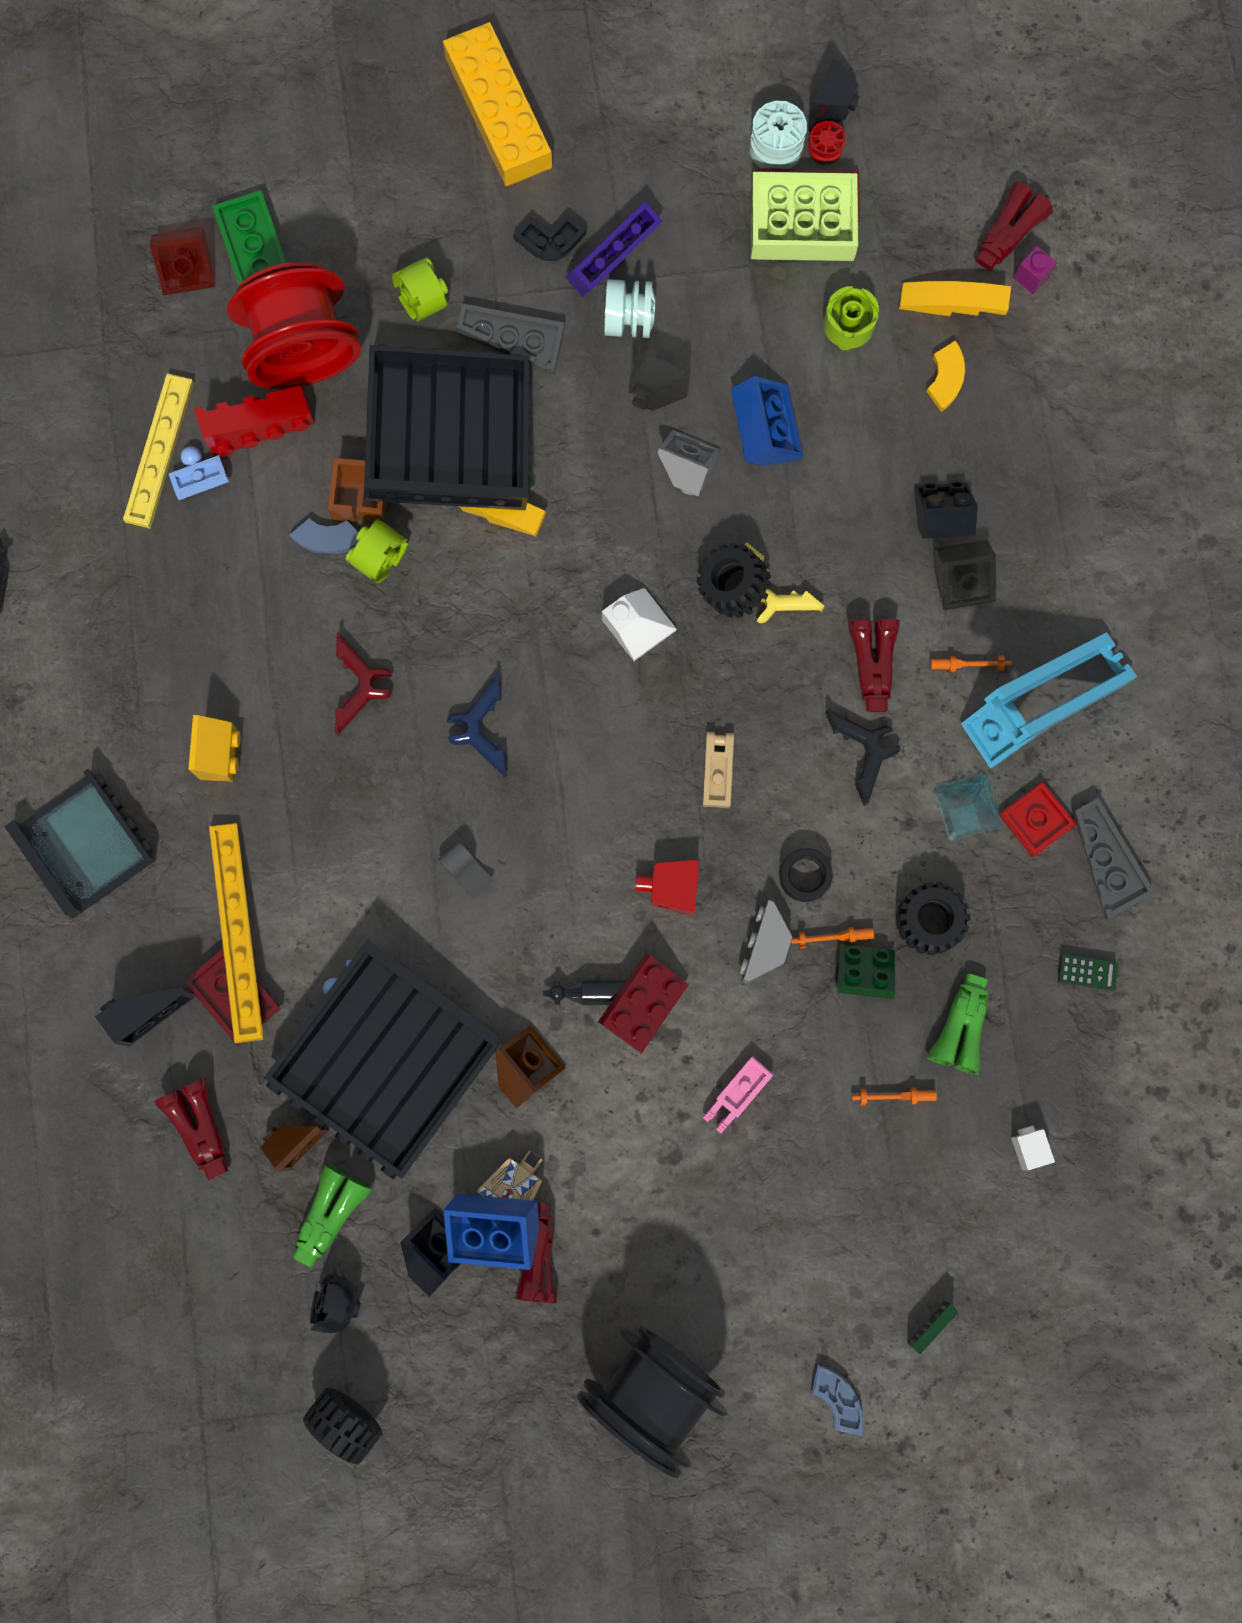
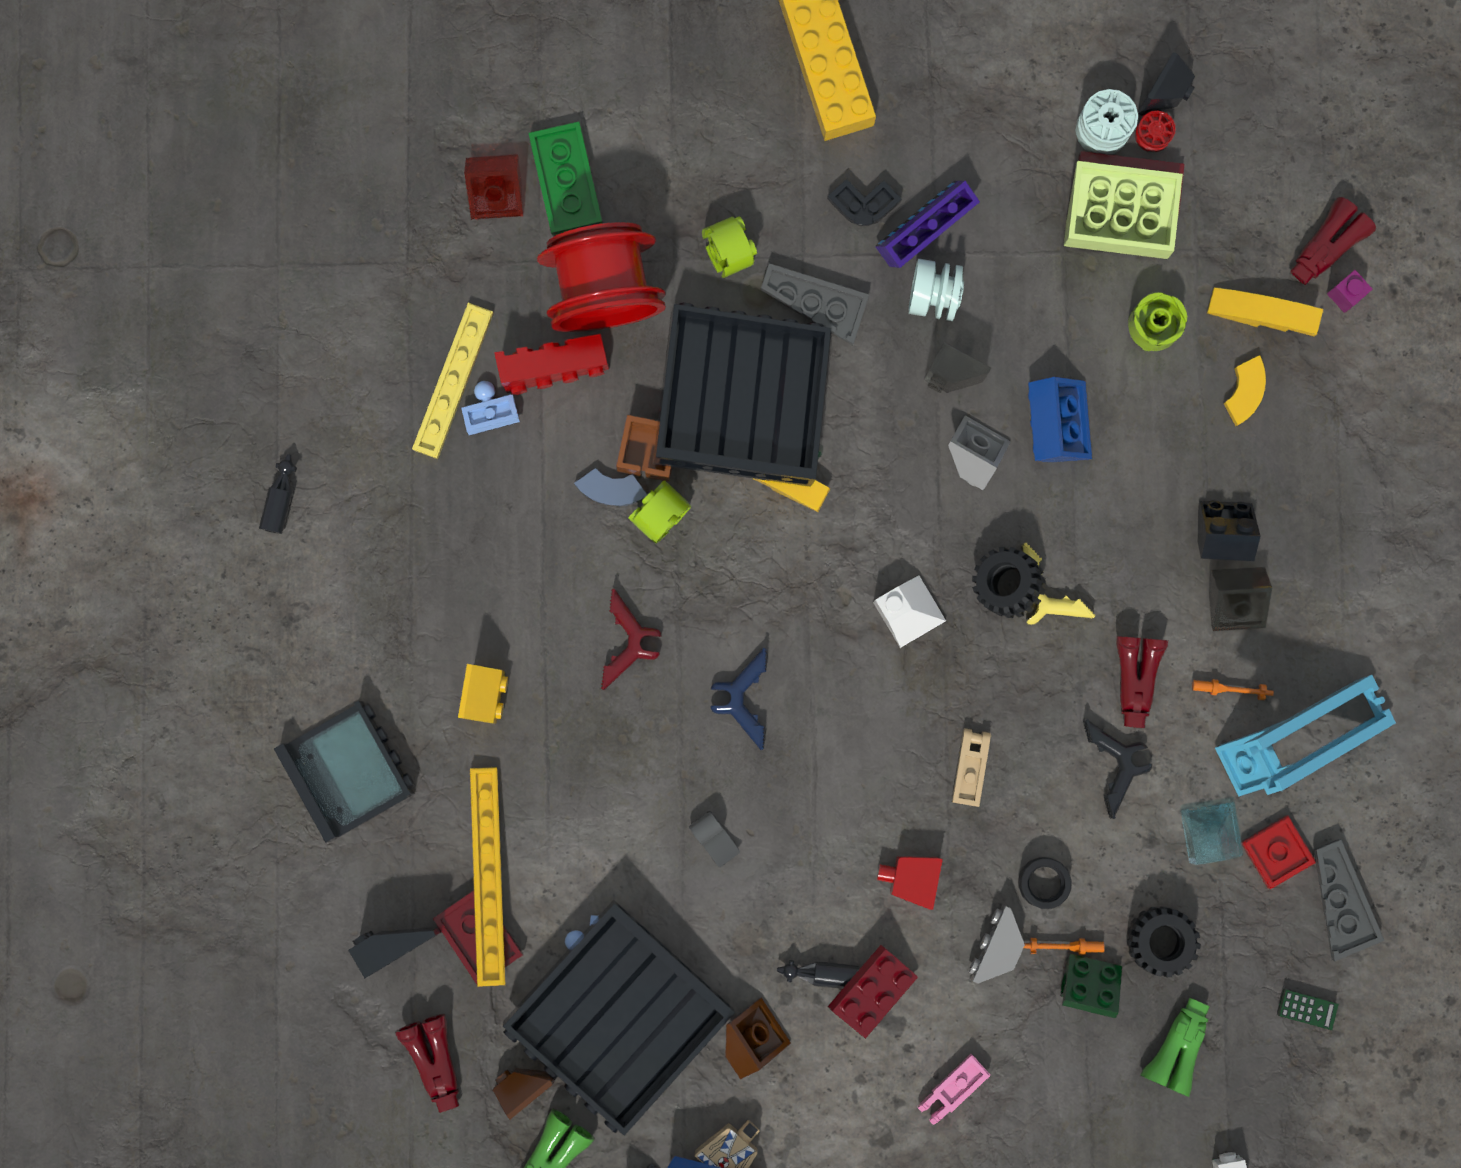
camera: 10 degrees right, 5 degrees up
(913, 1095) = (1123, 1109): orange piece -> none

